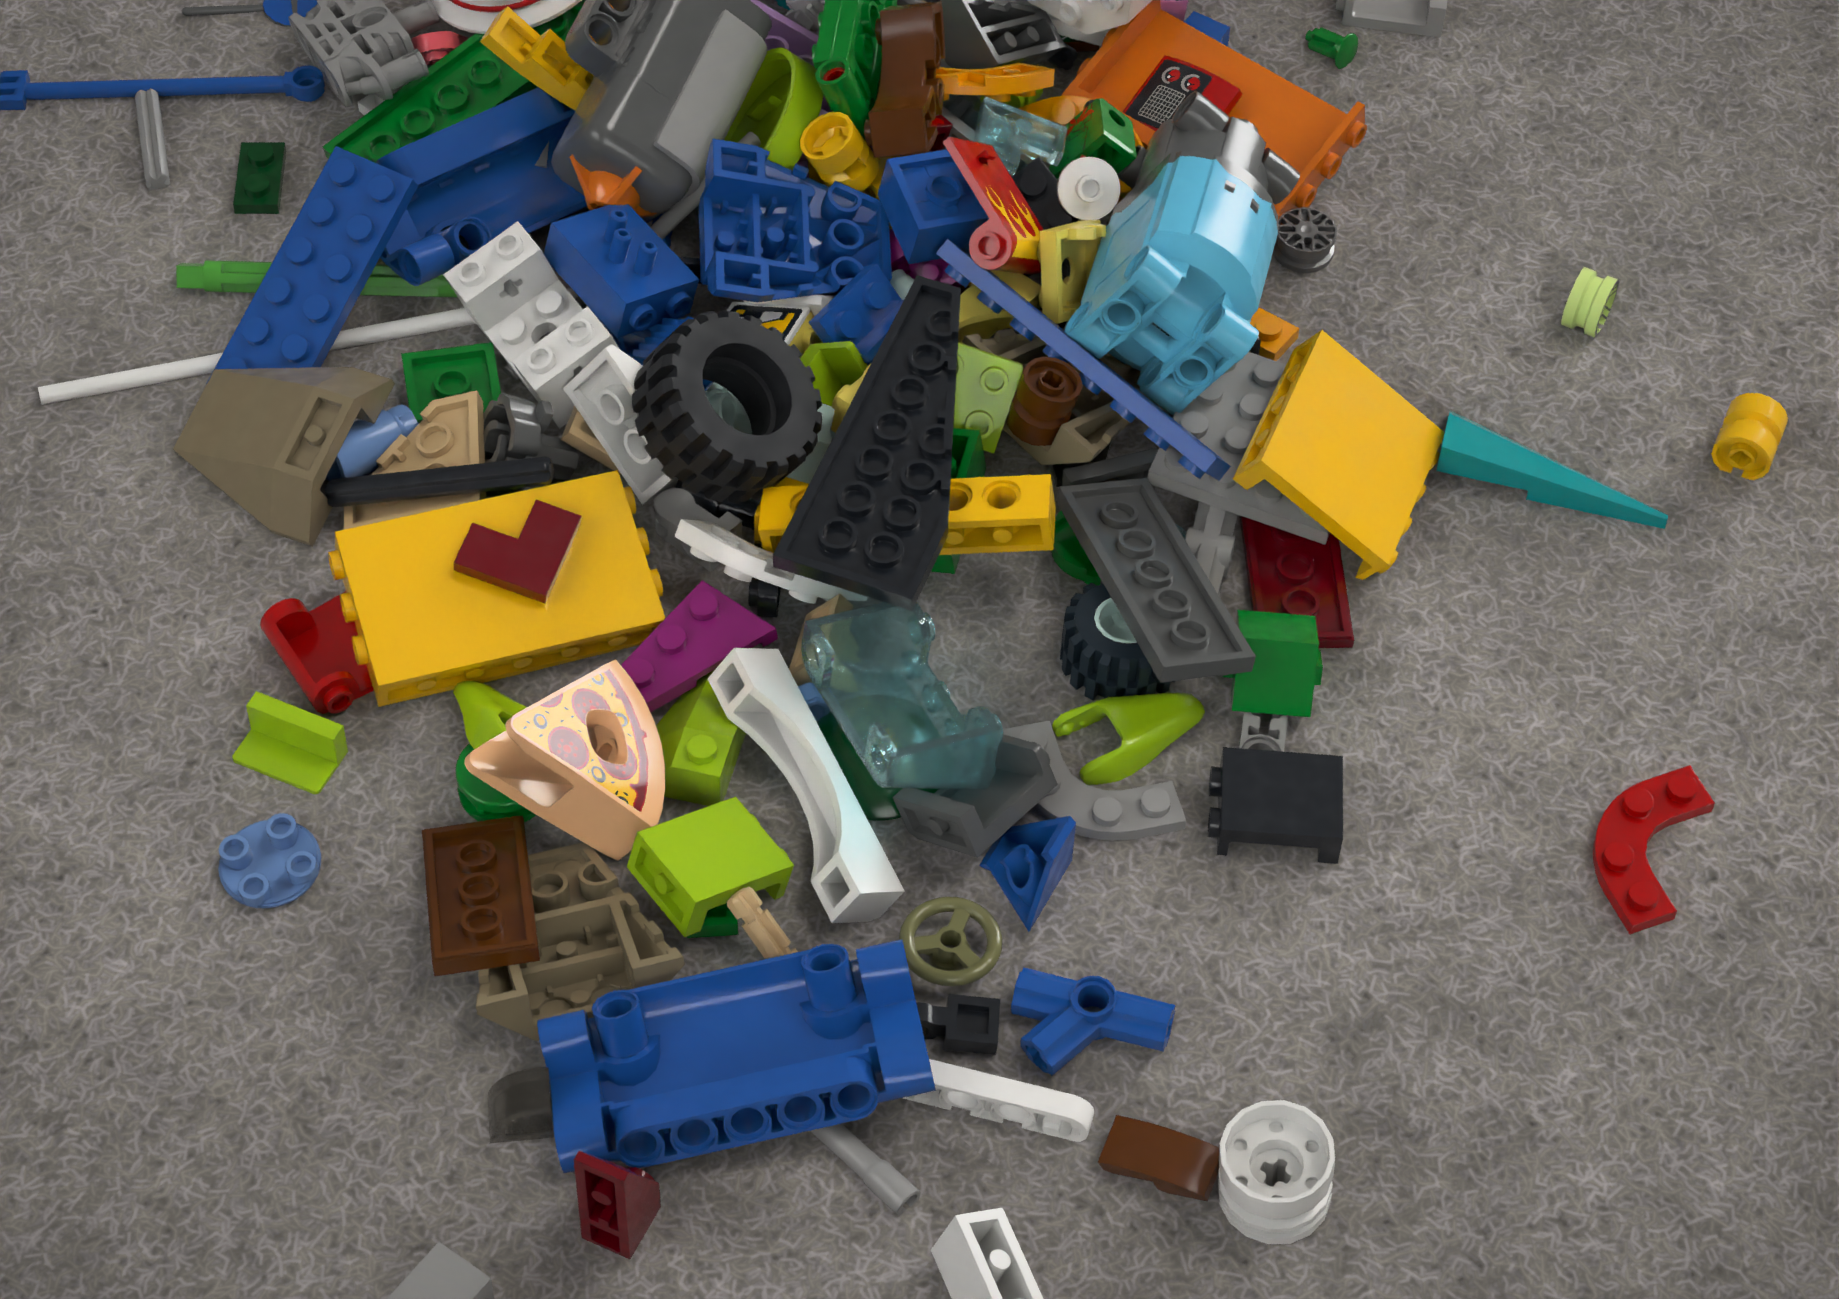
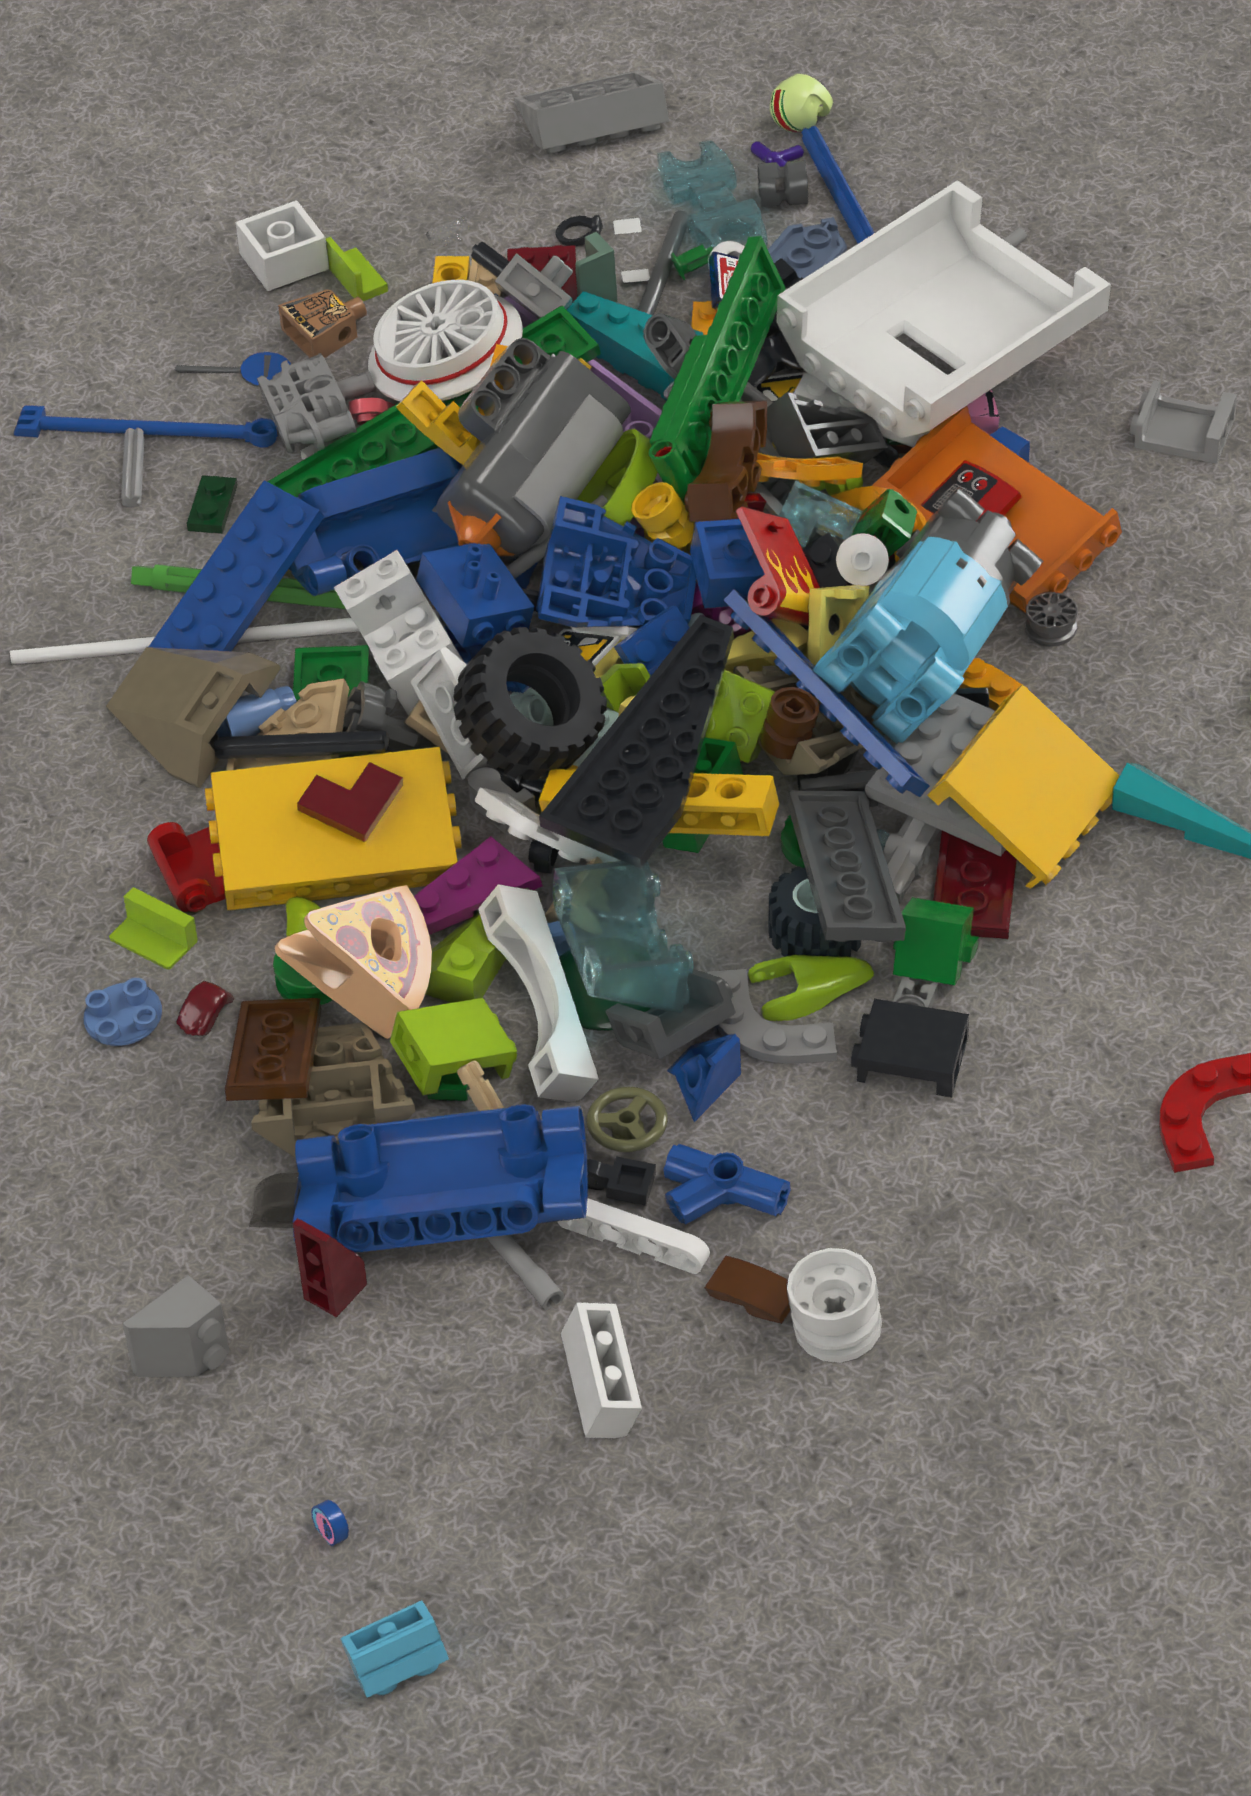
camera: 15 degrees right, 5 degrees down
(373, 845) = (202, 1008): none -> dark red hair
(1333, 45) = (1124, 466): green piece -> none

